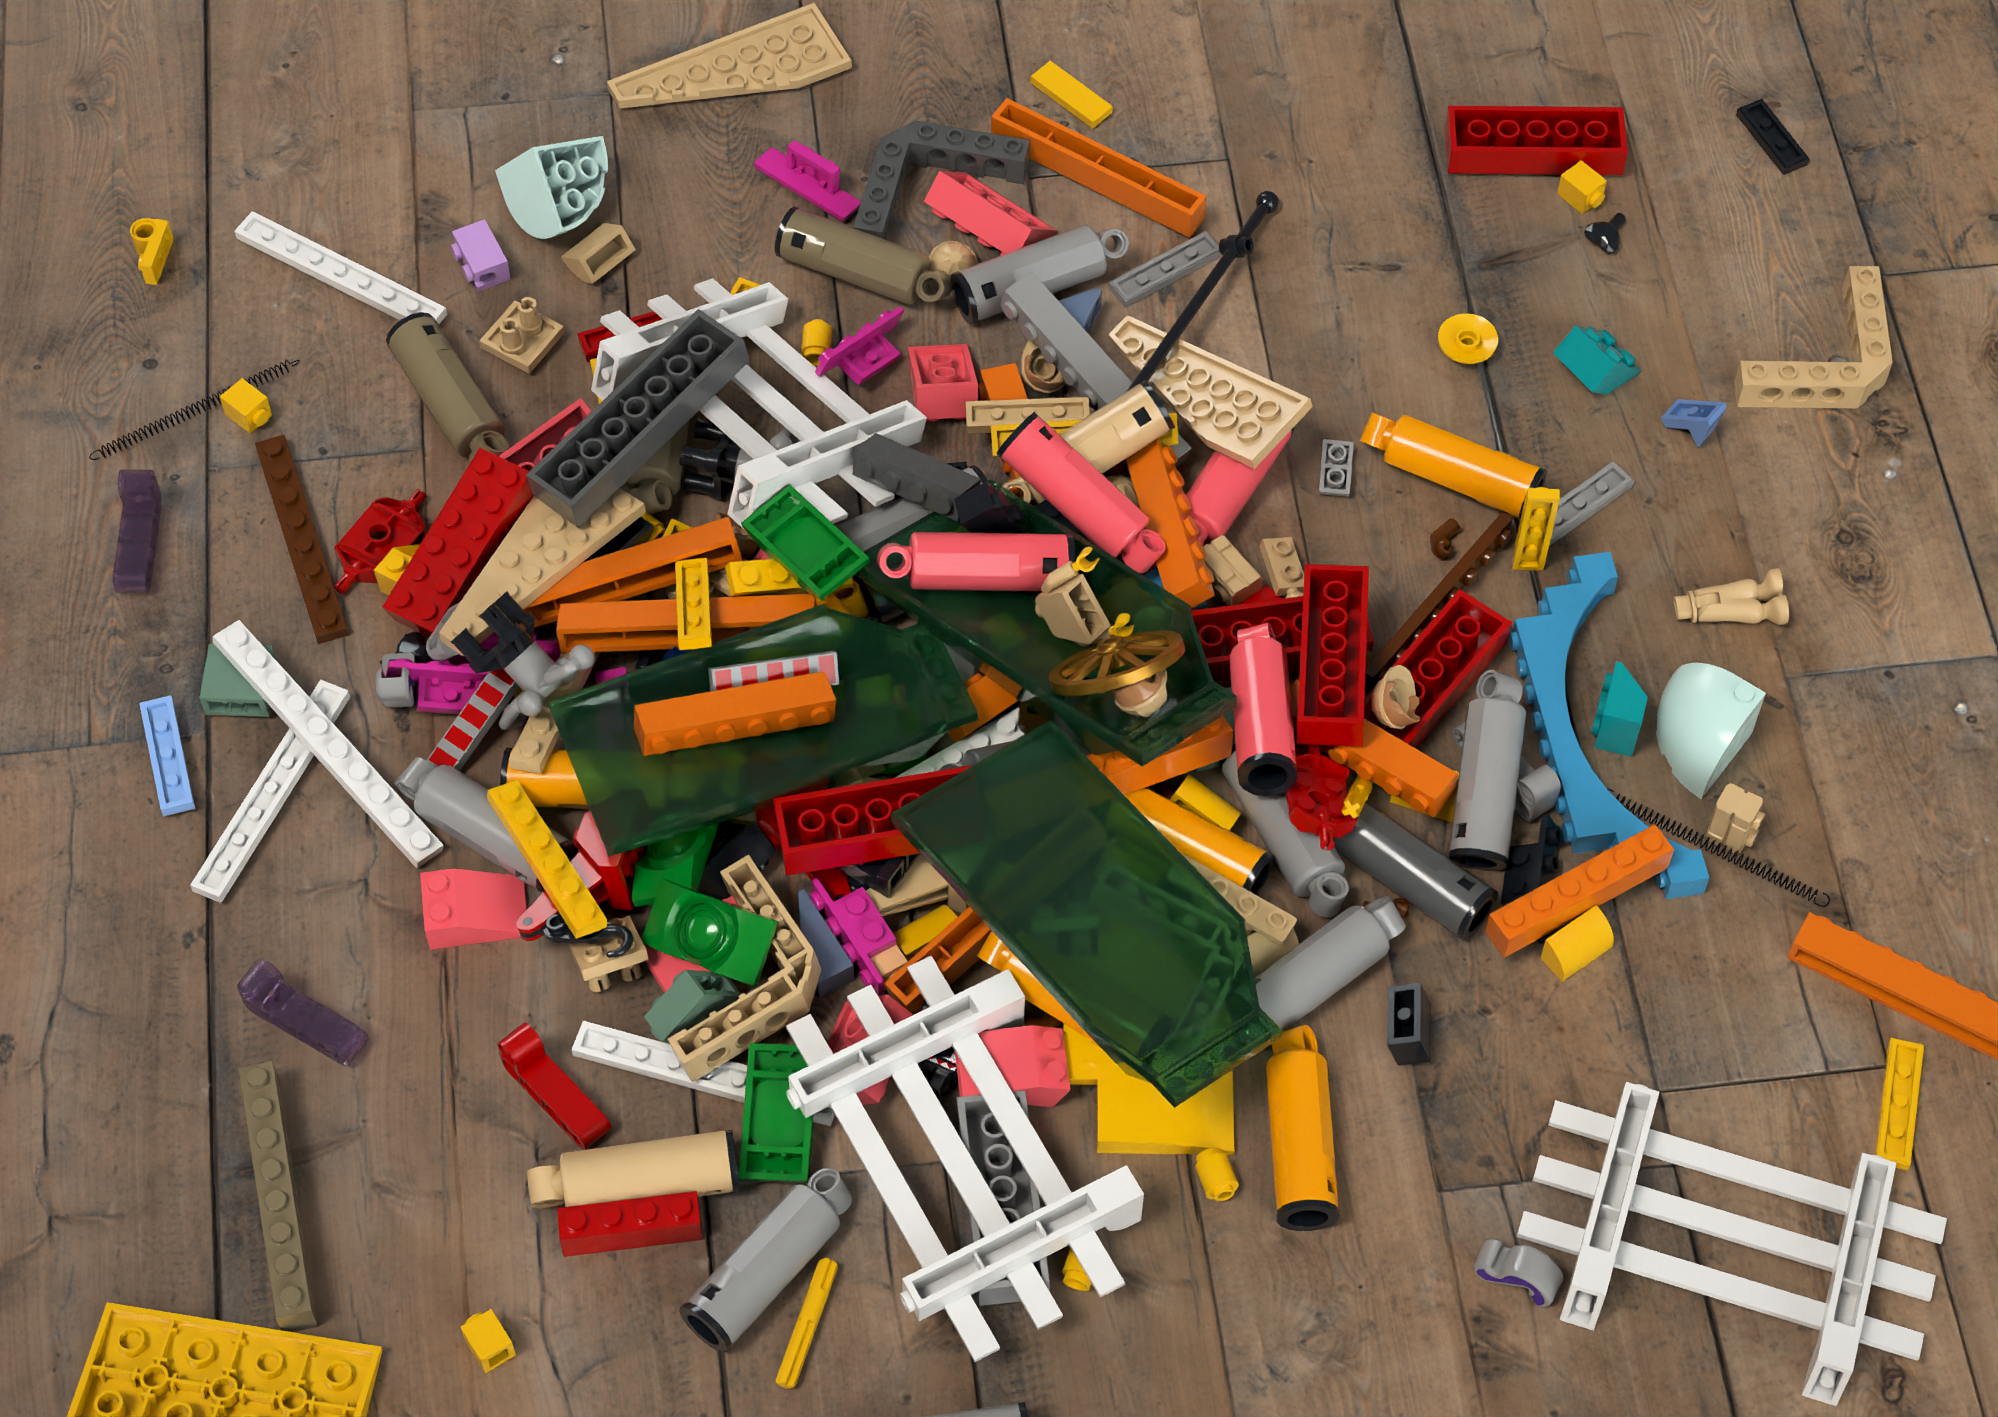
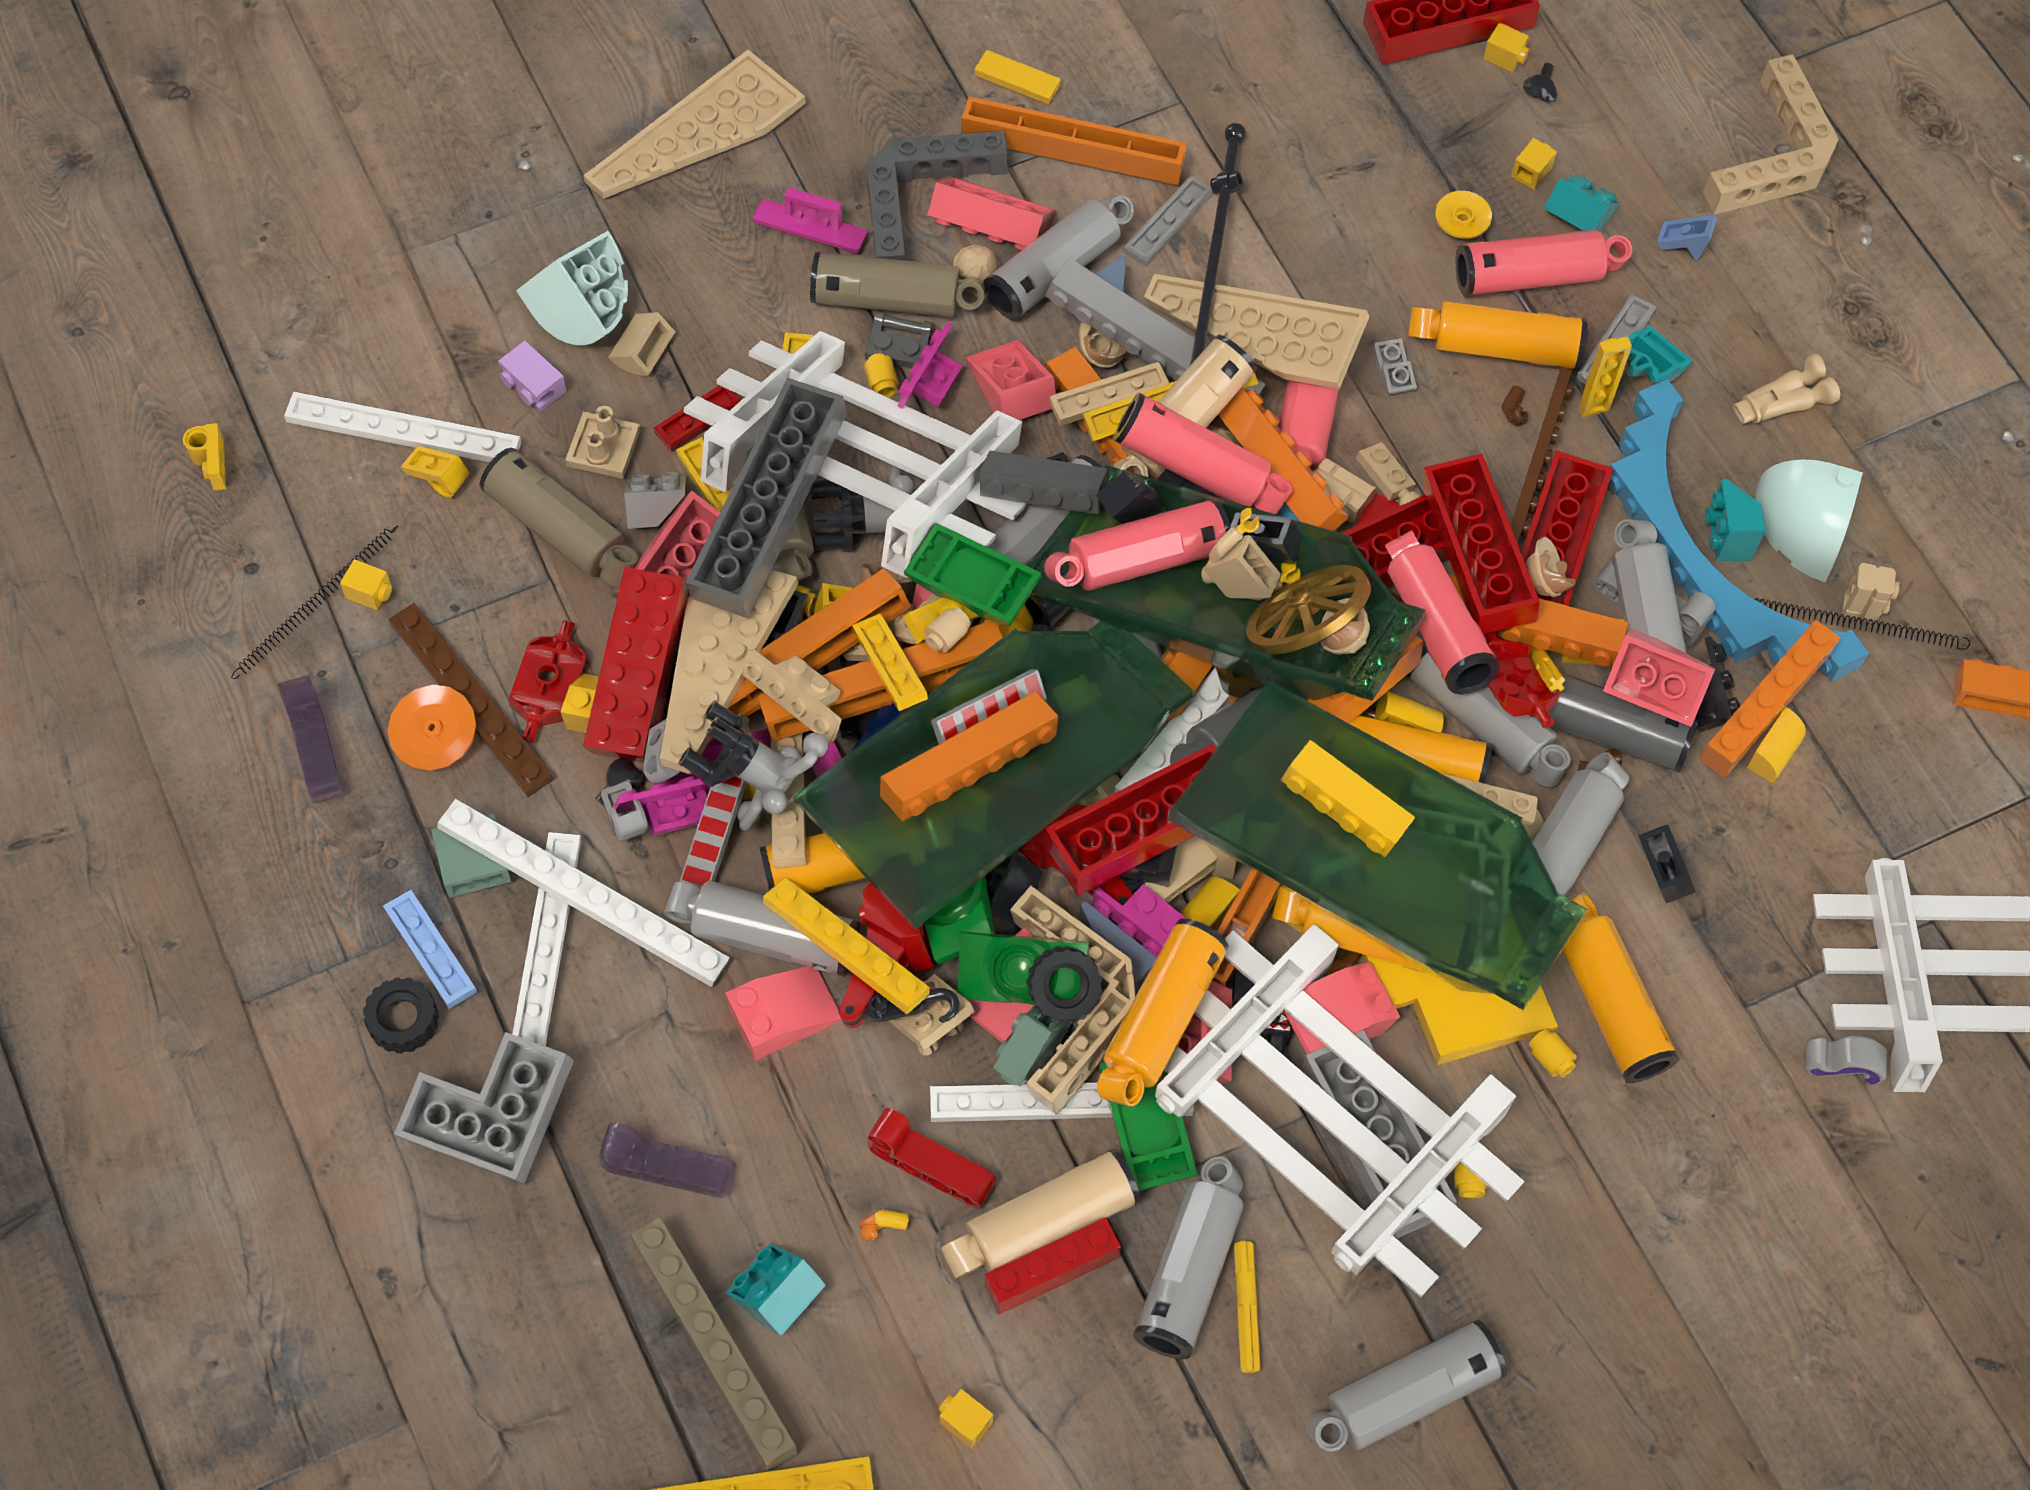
camera: 20 degrees left, 5 degrees up
(110, 785) = (383, 998): none -> black tyre
(159, 932) = (503, 1122): none -> light grey brick
(251, 553) = (432, 727): none -> orange piece
(357, 317) = (441, 469): none -> yellow plate
(358, 1163) = (775, 1288): none -> teal slope
(484, 1131) = (880, 1219): none -> arm
(542, 398) = (652, 499): none -> light grey slope
(595, 605) = (797, 690): none -> tan bracket
(718, 971) = (1089, 983): none -> black tyre
(760, 588) = (947, 630): none -> tan brick
(820, 1007) = (1161, 1011): none -> light orange piece
(842, 318) = (900, 348): none -> dark grey plate
(1081, 855) = (1347, 798): none -> yellow brick
(1114, 586) = (1275, 537): none -> black brick
(1461, 833) = (1659, 677): none -> coral slope
(1525, 403) = (1538, 261): none -> coral piece
(1563, 307) = (1534, 163): none -> yellow brick
(1607, 526) = (1655, 356): none -> teal plate

